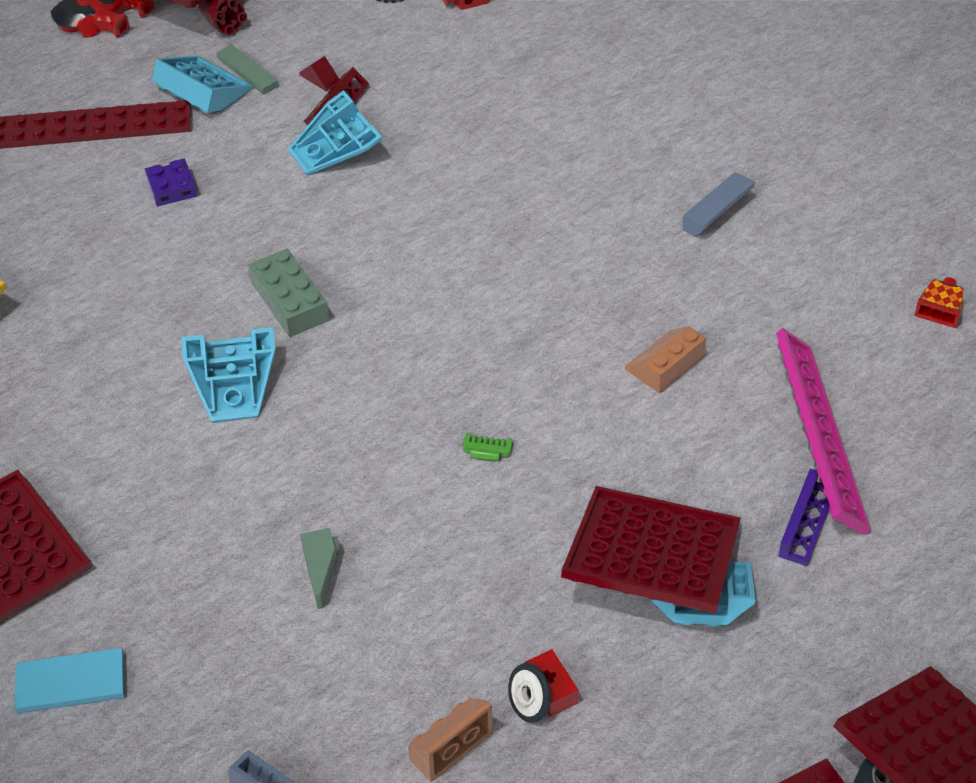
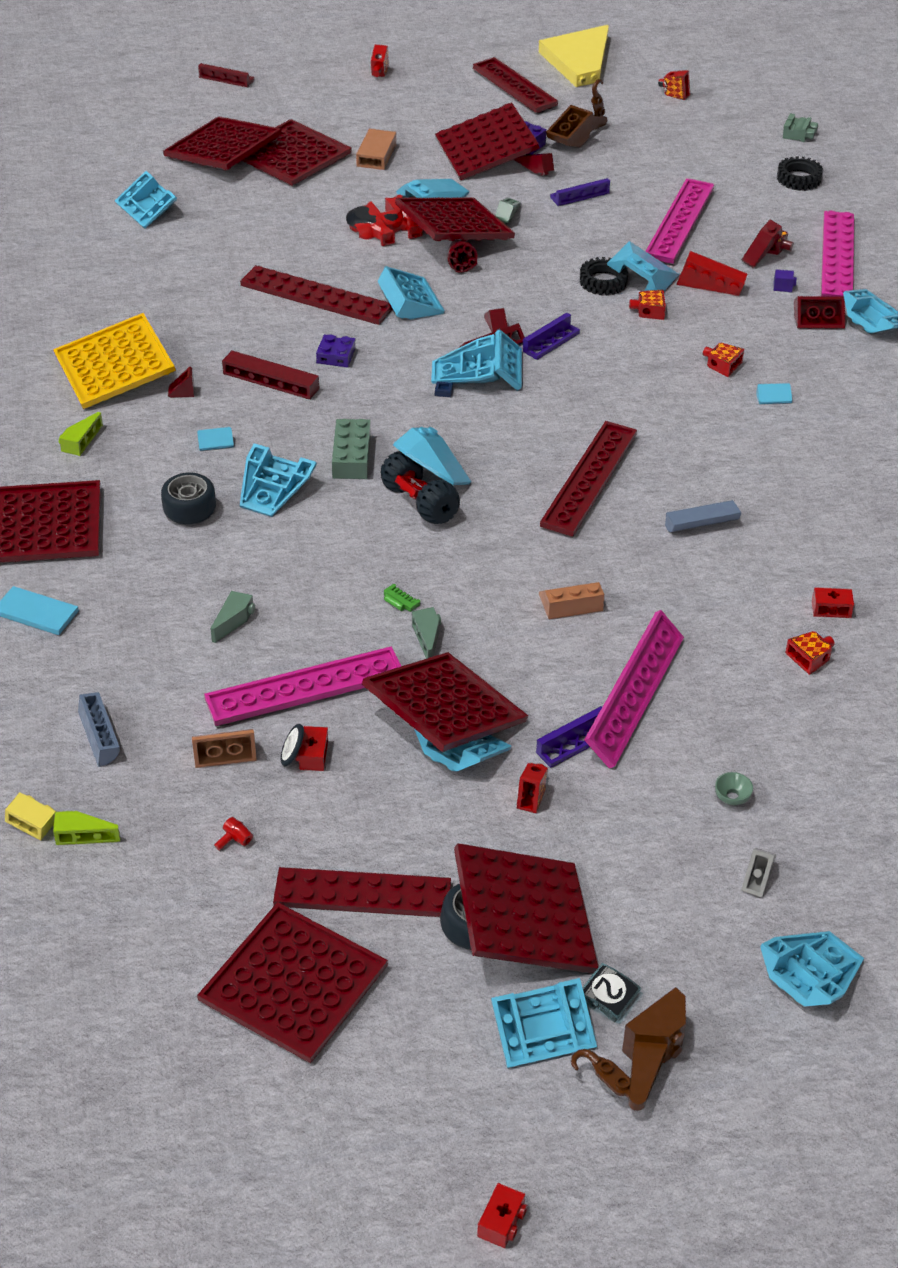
camera: 30 degrees right, 5 degrees down
(23, 301) = (183, 385): none -> dark red slope
(116, 351) = (215, 438): none -> medium azure slope
(118, 243) = (270, 374): none -> dark red brick
(151, 441) = (188, 498): none -> black wheel
(247, 69) = (450, 299): sand green tile -> none
(327, 177) = (443, 389): none -> dark blue tile
(376, 113) = (508, 360): none -> medium azure tile
(387, 70) = (547, 334): none -> dark purple fence
(387, 256) = (433, 453): none -> medium azure wedge
(440, 313) = (435, 500): none -> black plate
(470, 613) = (297, 686): none -> dark pink plate
(550, 469) = (426, 627): none -> sand green slope
(568, 213) = (588, 478): none -> dark red plate
(588, 20) = (724, 358): none -> red torso
(667, 39) = (774, 393): none -> medium azure slope
(820, 600) = (533, 778): none -> red torso
(915, 239) = (832, 602): none -> red brick

